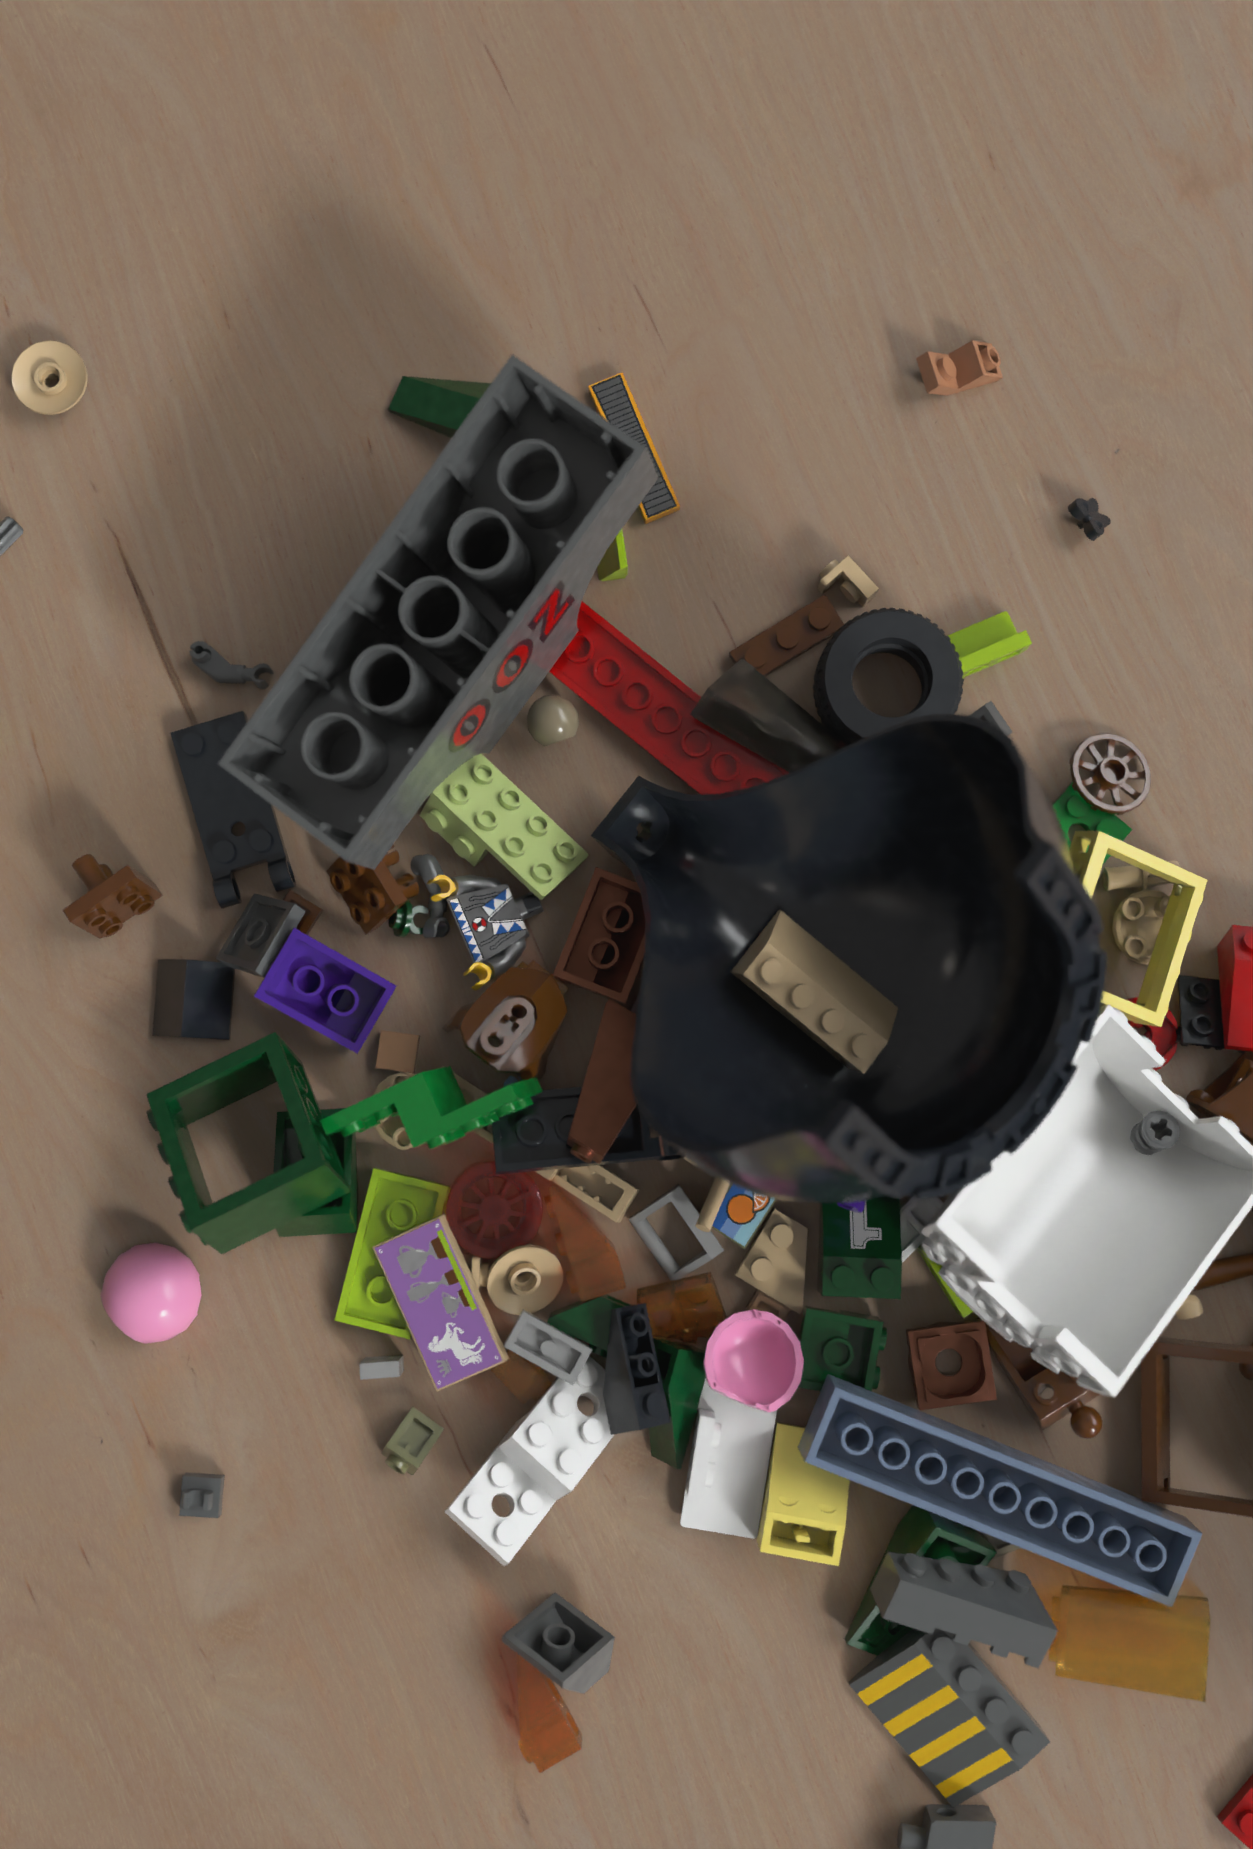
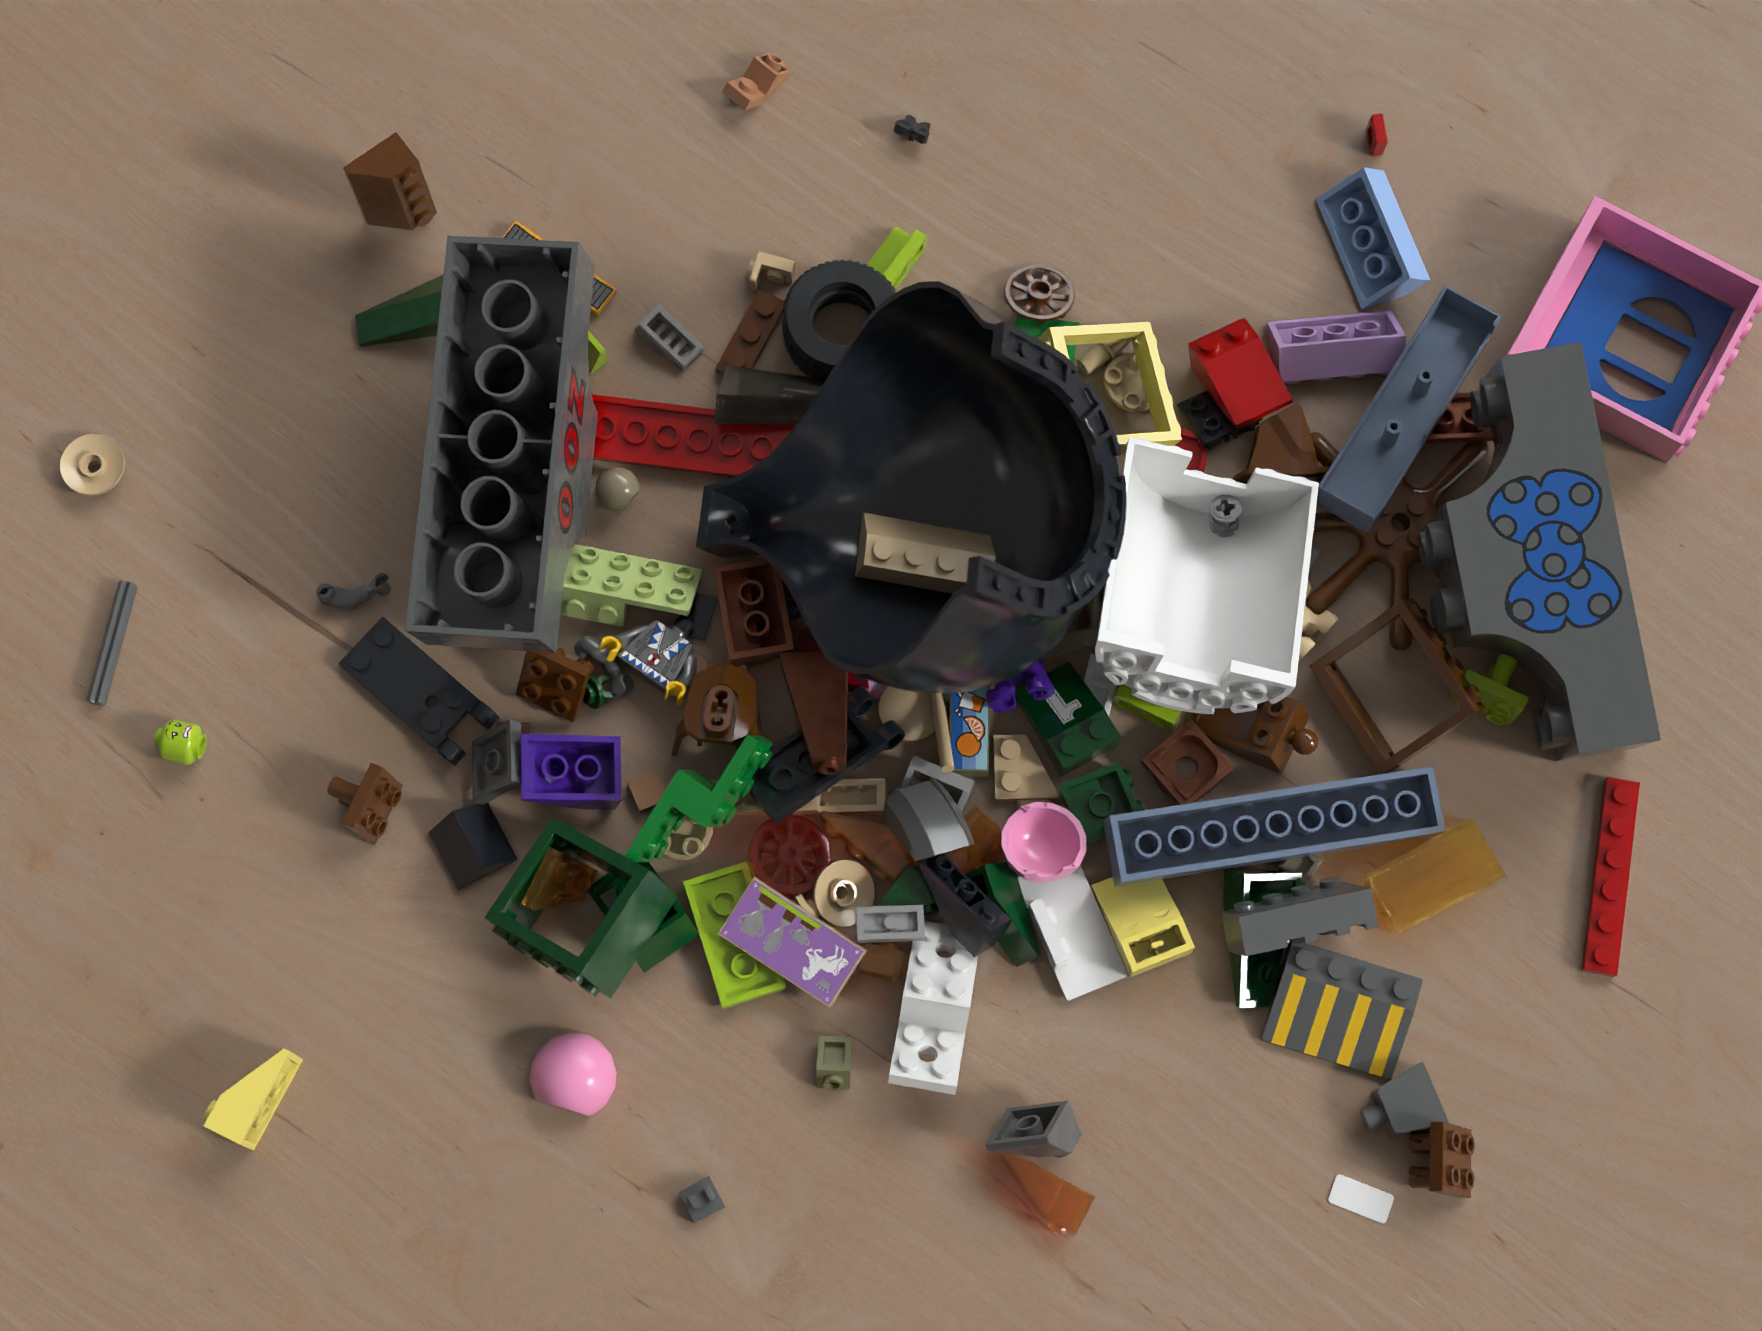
camera: 30 degrees left, 10 degrees down
(245, 1096) = (558, 881): none -> clear orange wing
(381, 1367) = (778, 1020): light grey tile -> none
(508, 258) = (391, 186): none -> reddish brown slope
(559, 902) = (701, 615): none -> black piece
(649, 1268) = (926, 820): none -> dark grey slope
(716, 587) = (677, 329): none -> light grey slope

